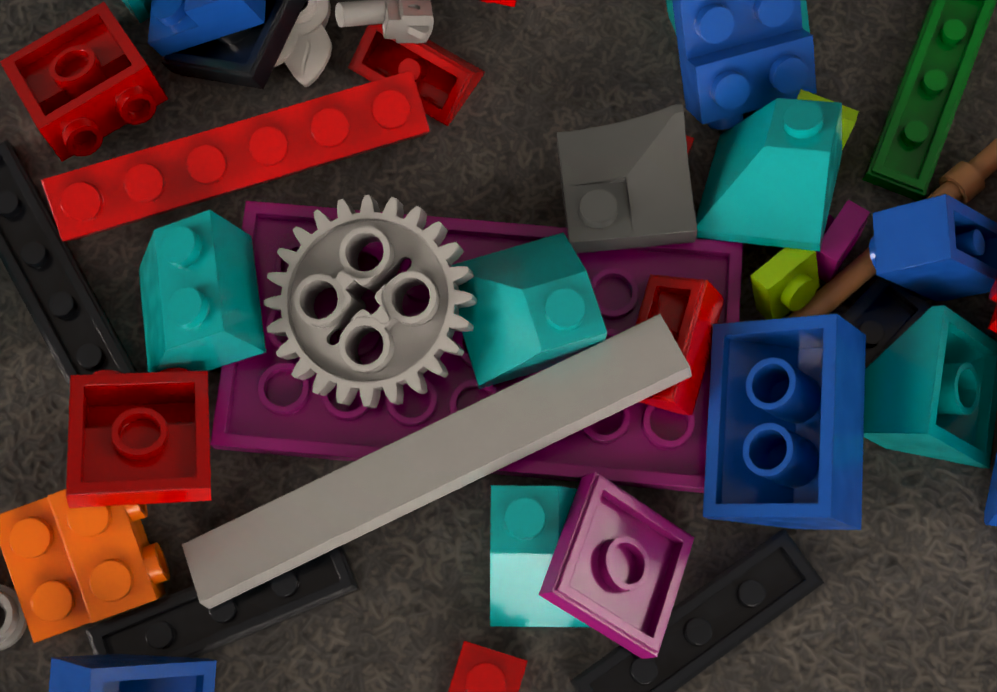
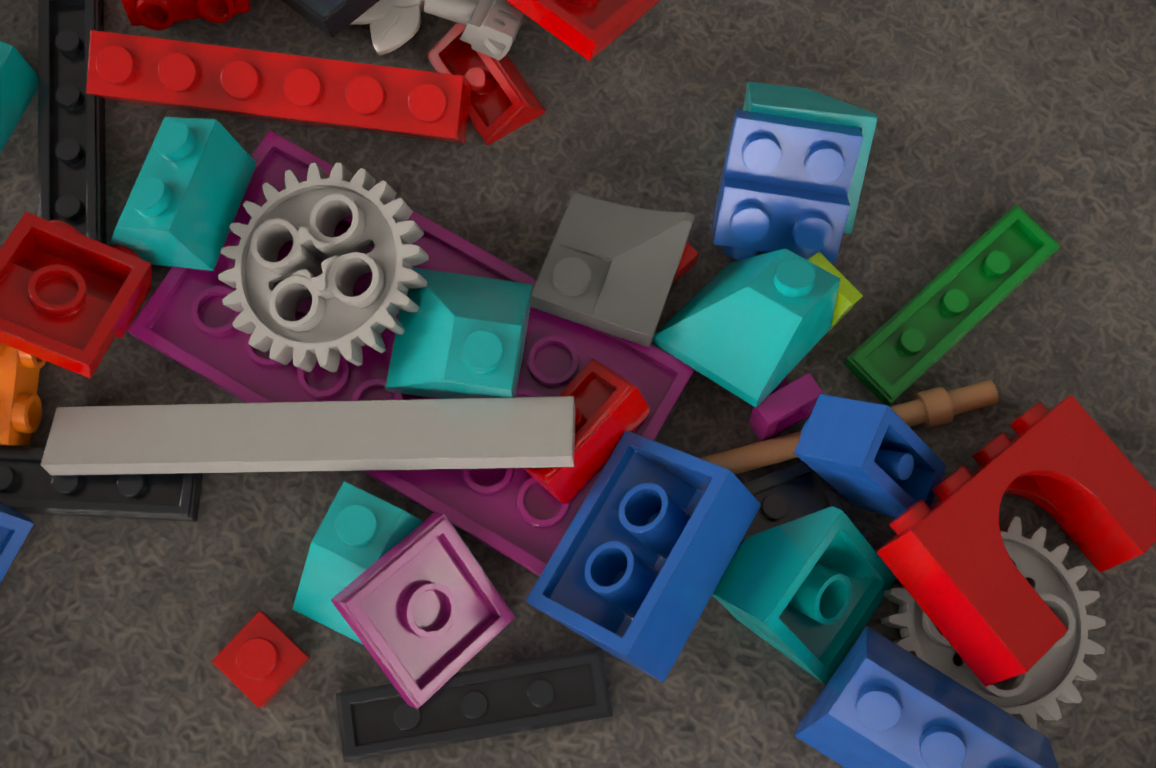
camera: 20 degrees right, 0 degrees up
(785, 282) = (716, 423): lime plate -> none

